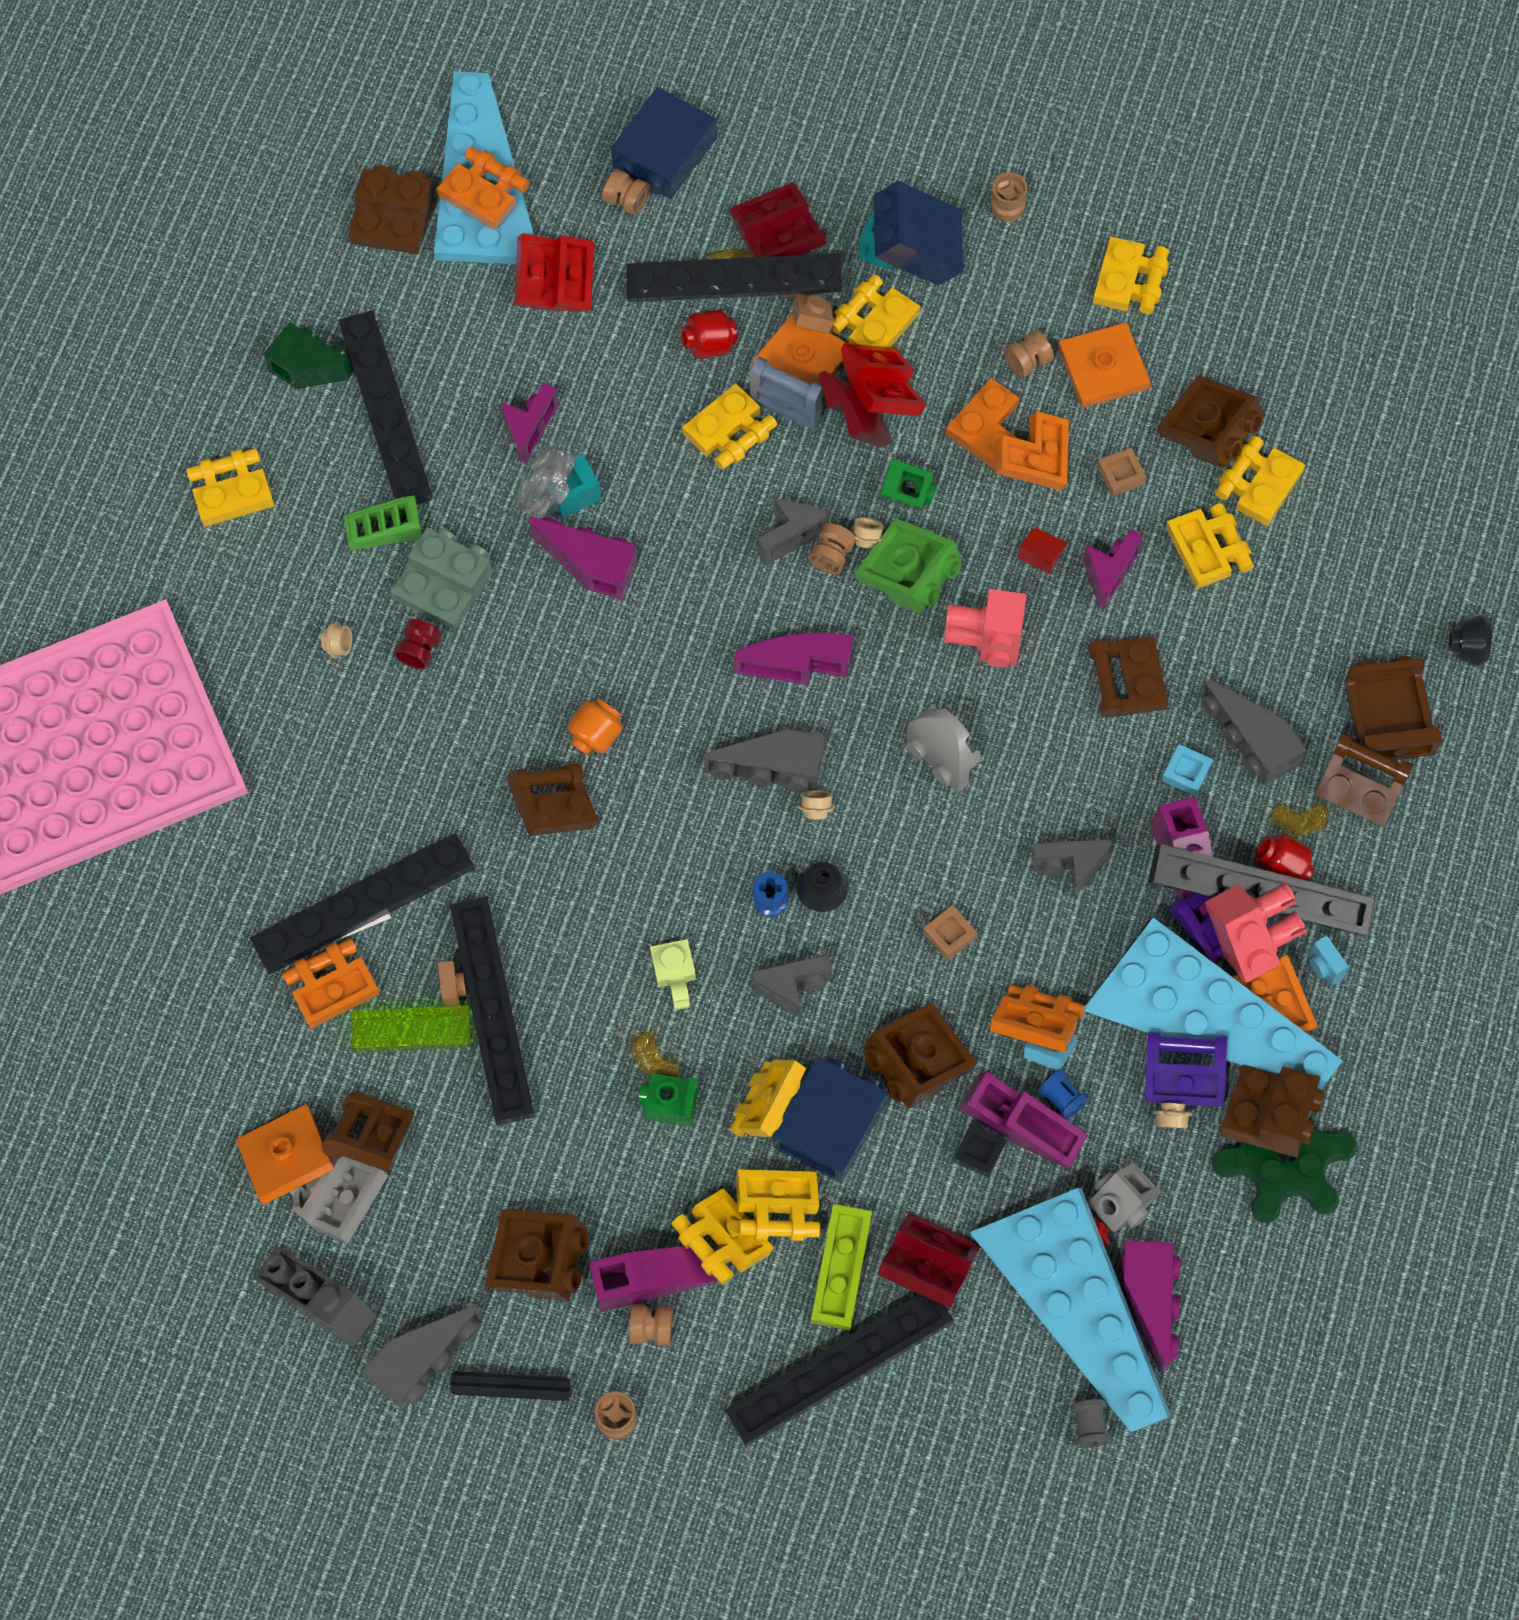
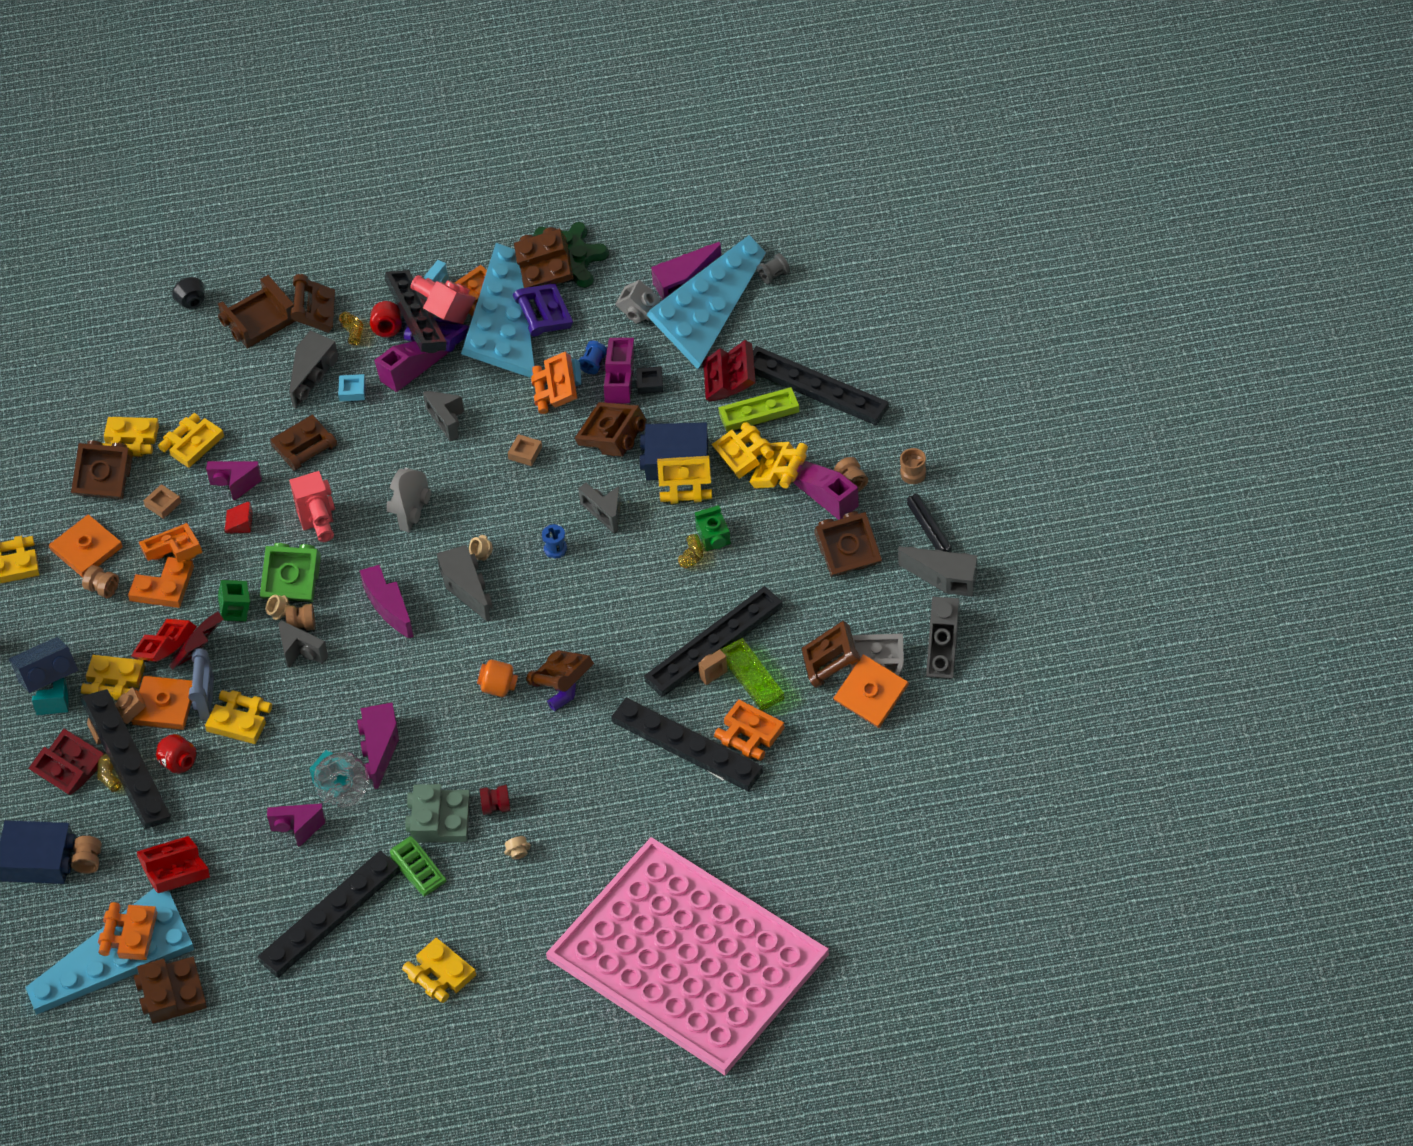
camera: 115 degrees left, 15 degrees down
(304, 360) = (319, 974): dark green slope -> none
(674, 967) = (630, 571): yellowish green plate -> none
(822, 887) = (531, 523): black cone -> none
(1172, 1116) = (575, 306): tan plate -> none

